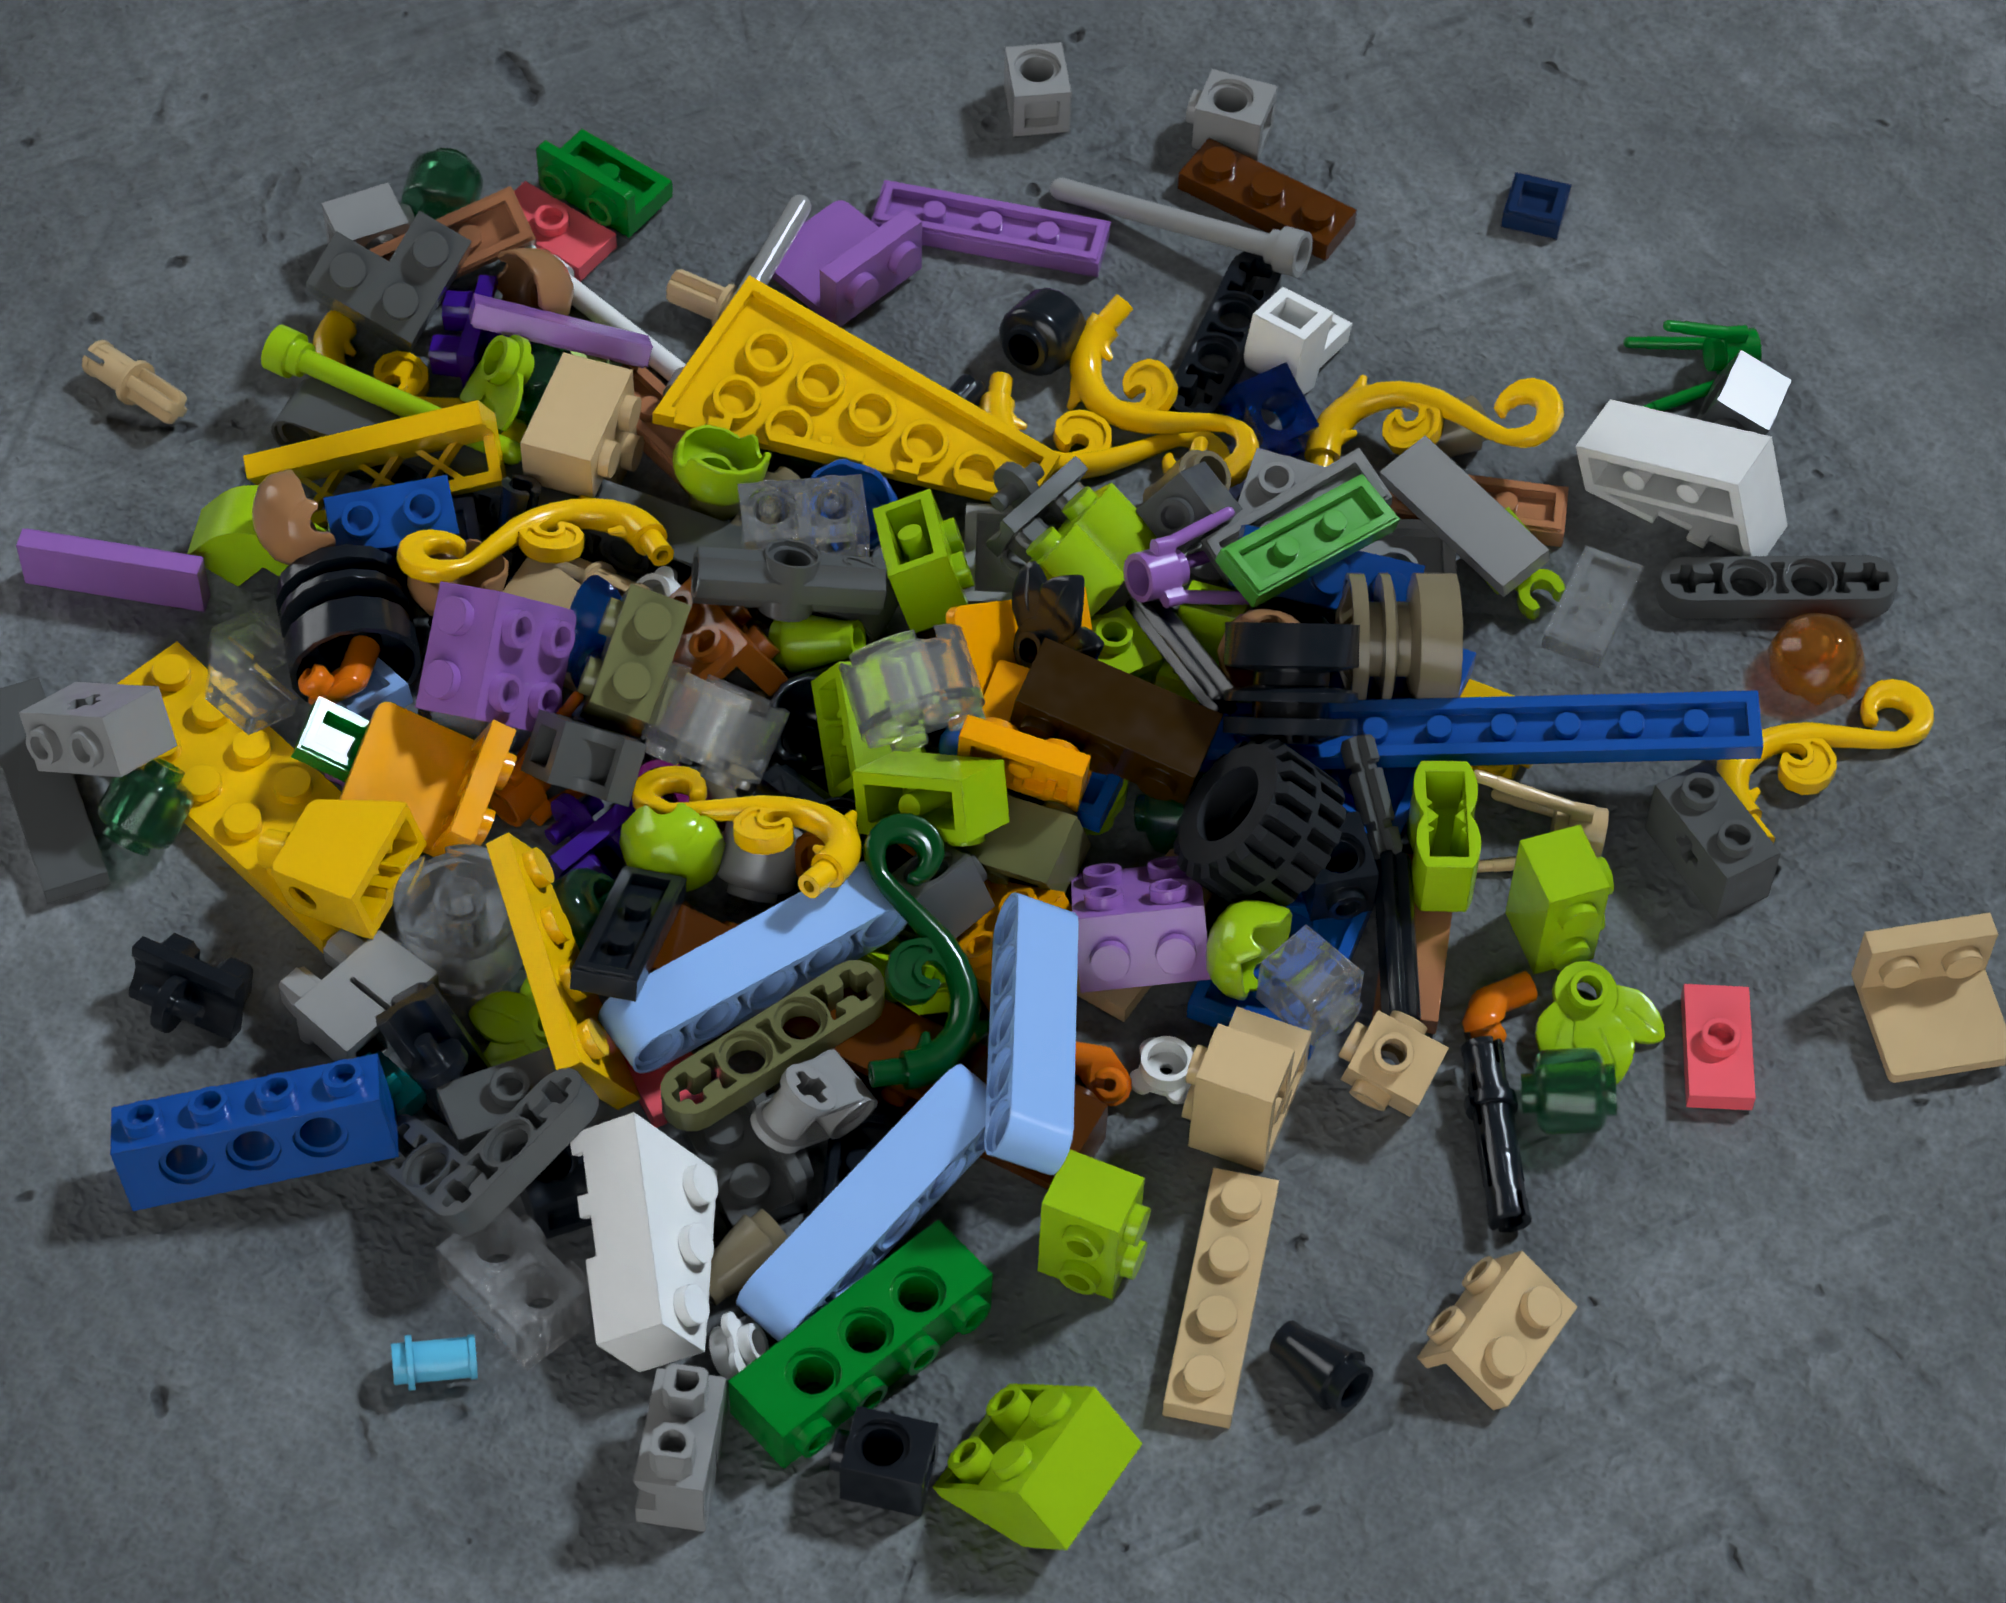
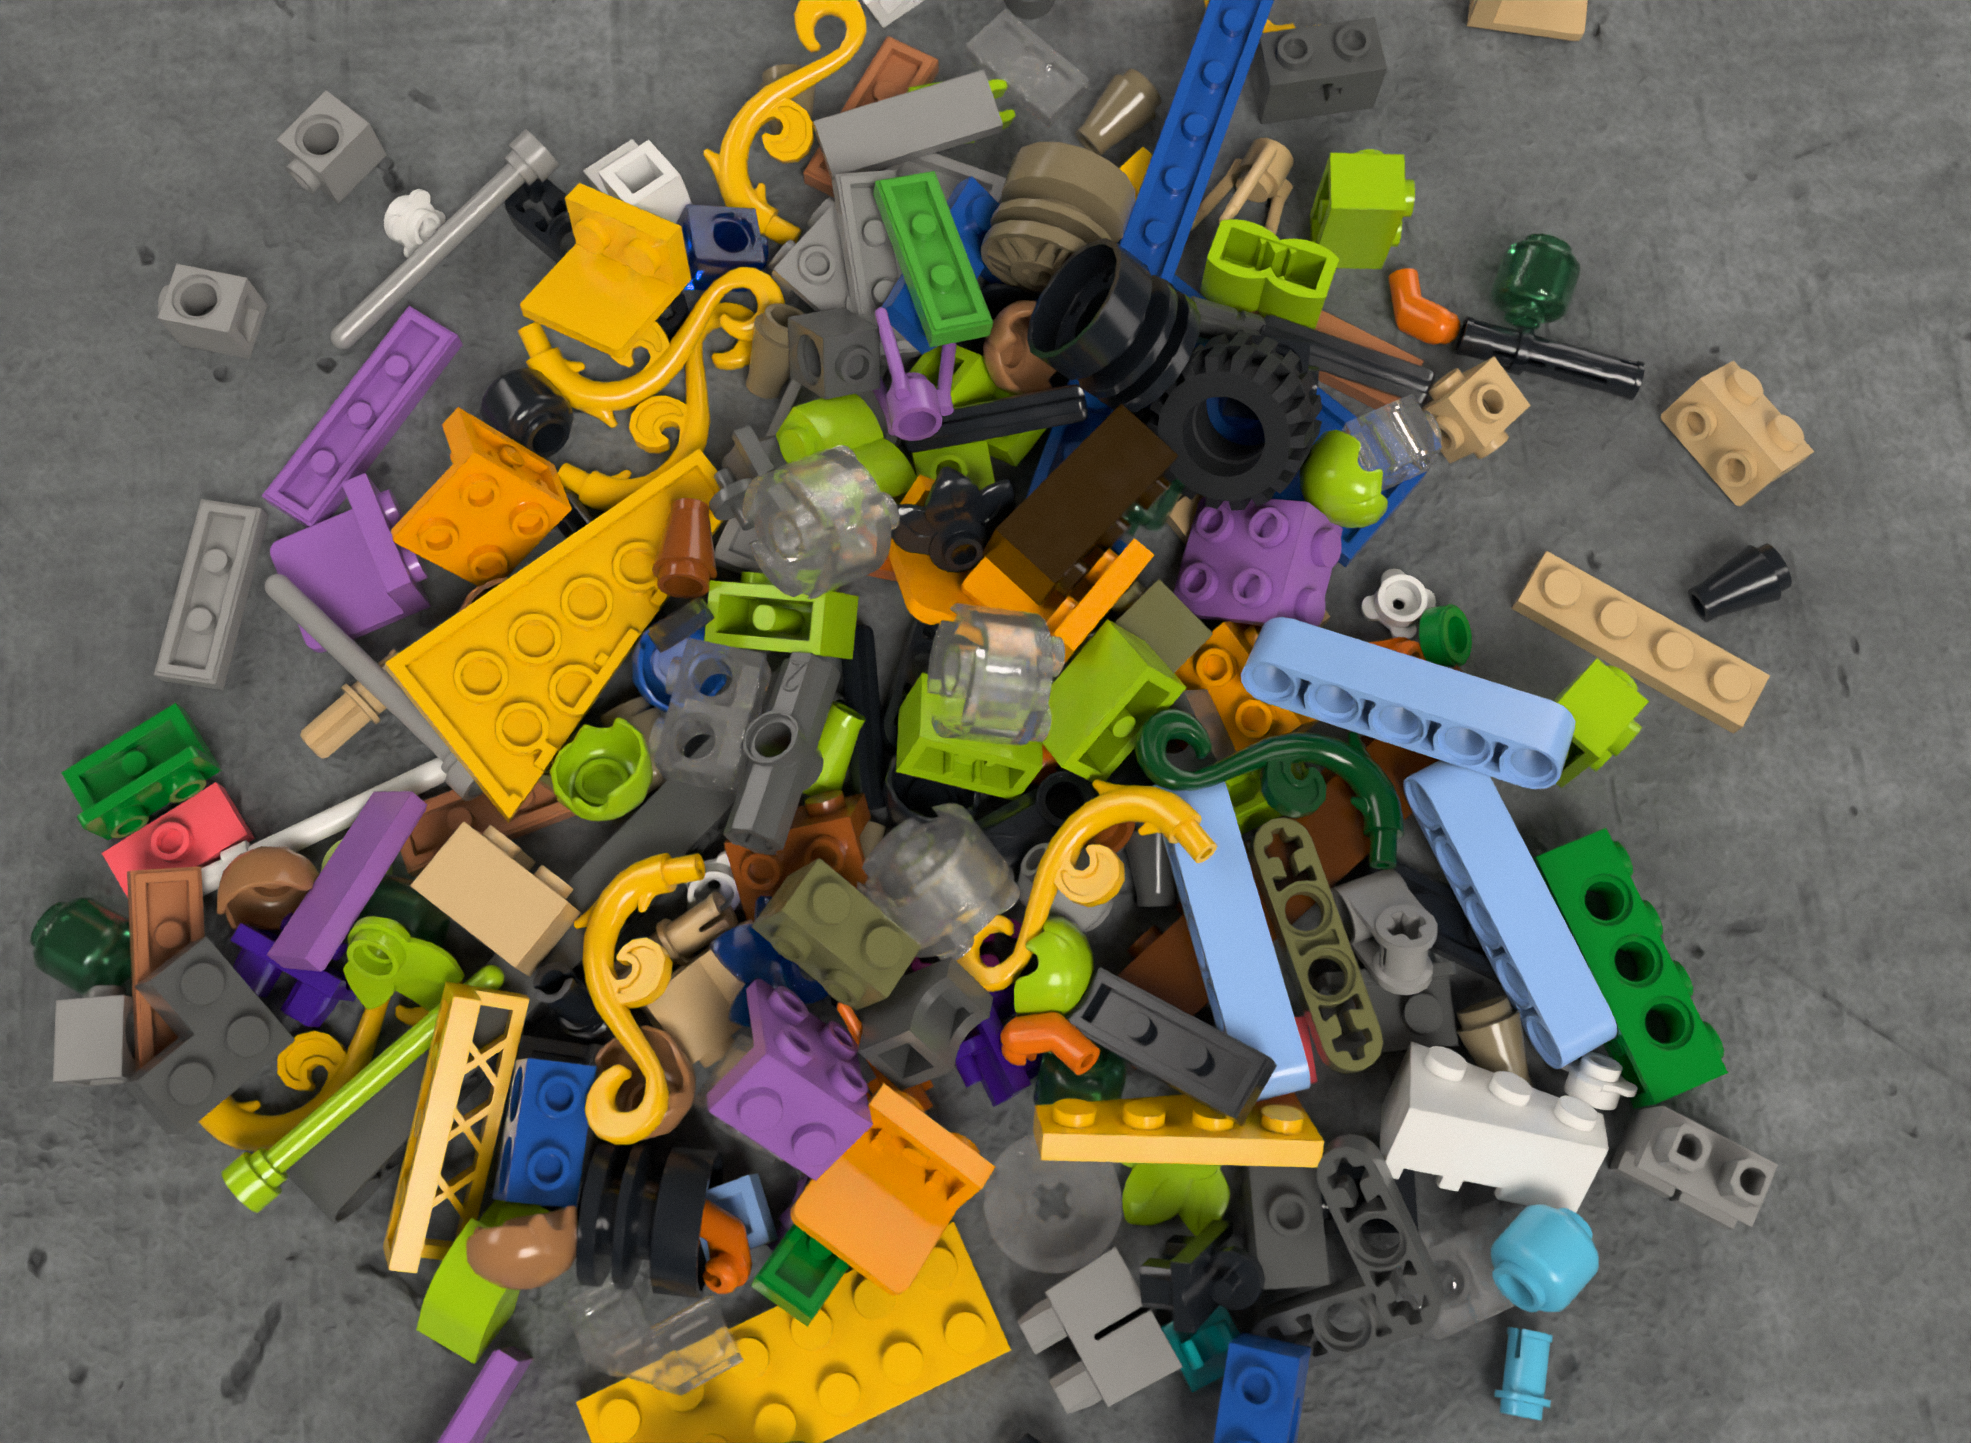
camera: 70 degrees left, 20 degrees up
(135, 382) = (201, 1356): tan axle -> none
(343, 860) = (962, 1311): yellow torso -> none
(539, 1291) = (1544, 1258): none -> medium azure head
(606, 856) = (1047, 1032): none -> orange arm
(772, 179) = (211, 594): none -> light grey tile
(877, 473) = (680, 624): none -> clear smoke tile
(893, 1487) = (1769, 970): black brick -> none
(938, 312) = (486, 506): none -> light orange bracket
(950, 463) = (686, 551): none -> dark orange cone
(1000, 519) = (819, 522): none -> clear brick
(1039, 1462) = (1781, 857): lime slope -> none
(1144, 1109) = (1445, 636): none -> green tile
(1187, 338) = (614, 276): none -> yellow bracket
(1190, 184) = (412, 220): none -> white plate
(1244, 1087) = (1456, 539): tan brick -> none
(1265, 196) = (439, 155): reddish brown plate -> none
(1576, 681) = (1120, 111): none -> dark tan cone
(1608, 1024) = (1456, 237): lime plate -> none
(1717, 1047) = (1508, 154): coral plate -> none

